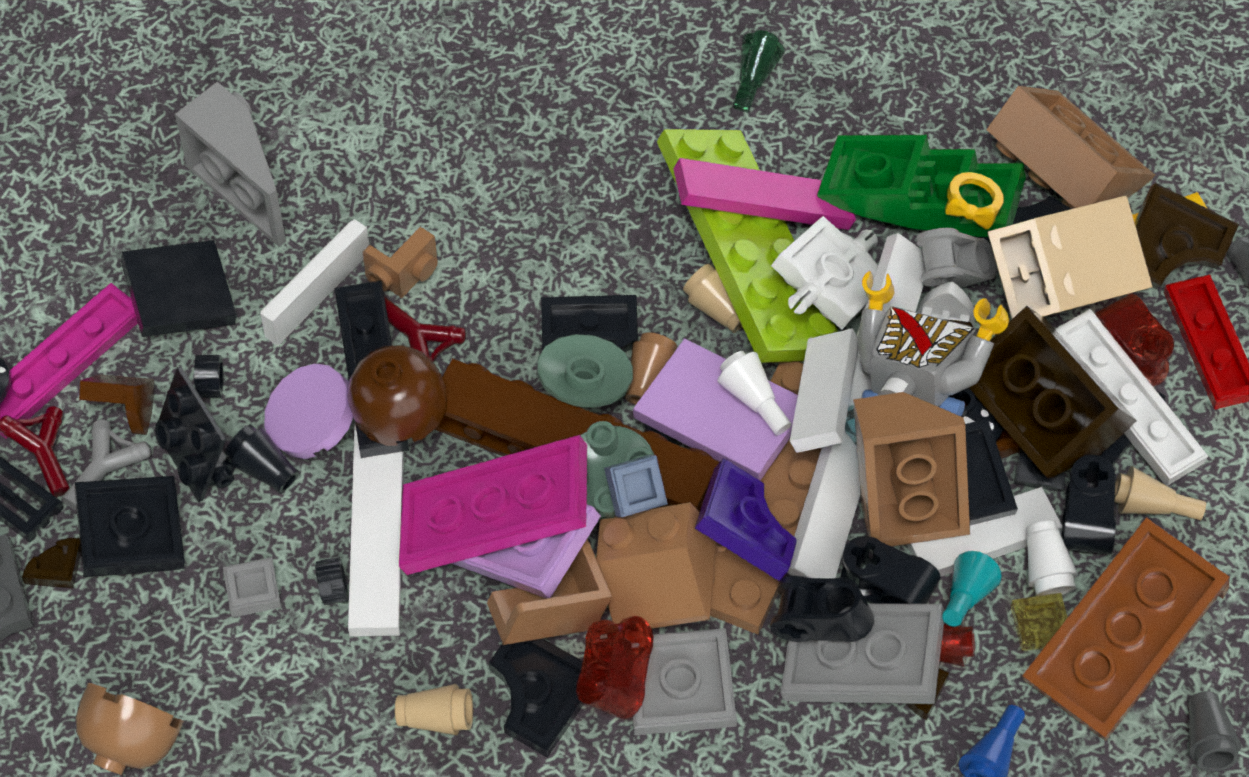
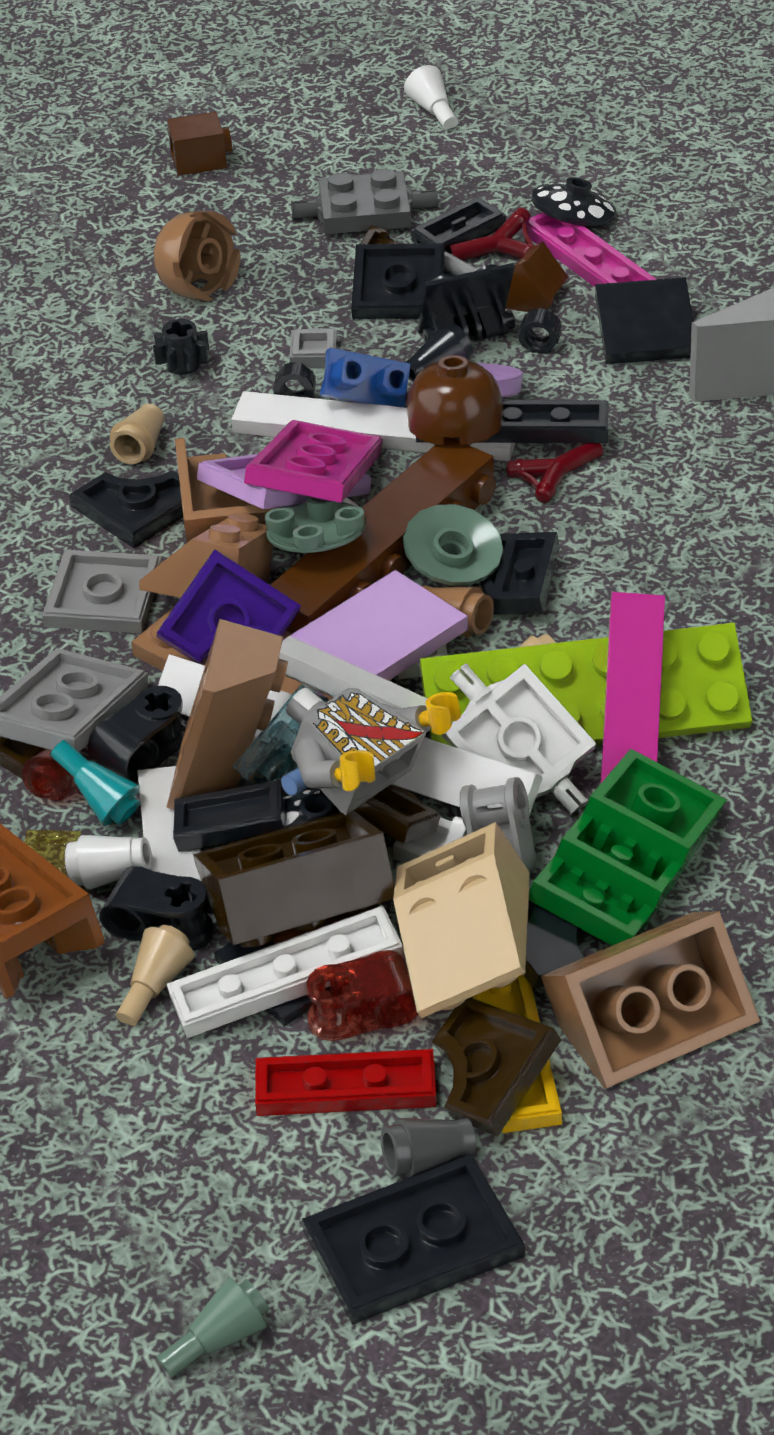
camera: 105 degrees right, 15 degrees down
(275, 713) = (181, 347): none -> black gear
(314, 282) = (627, 397): white tile -> none
(332, 501) = (364, 378): none -> blue hips
(408, 265) = (630, 455): medium nougat bracket -> none
(614, 671) = (124, 529): clear red piece -> none
(635, 486) = (277, 521): sand blue tile -> none
(747, 381) = (380, 632): white cone -> none
(813, 607) = (111, 661): black piece -> none
(958, 206) = (544, 856): yellow piece -> none

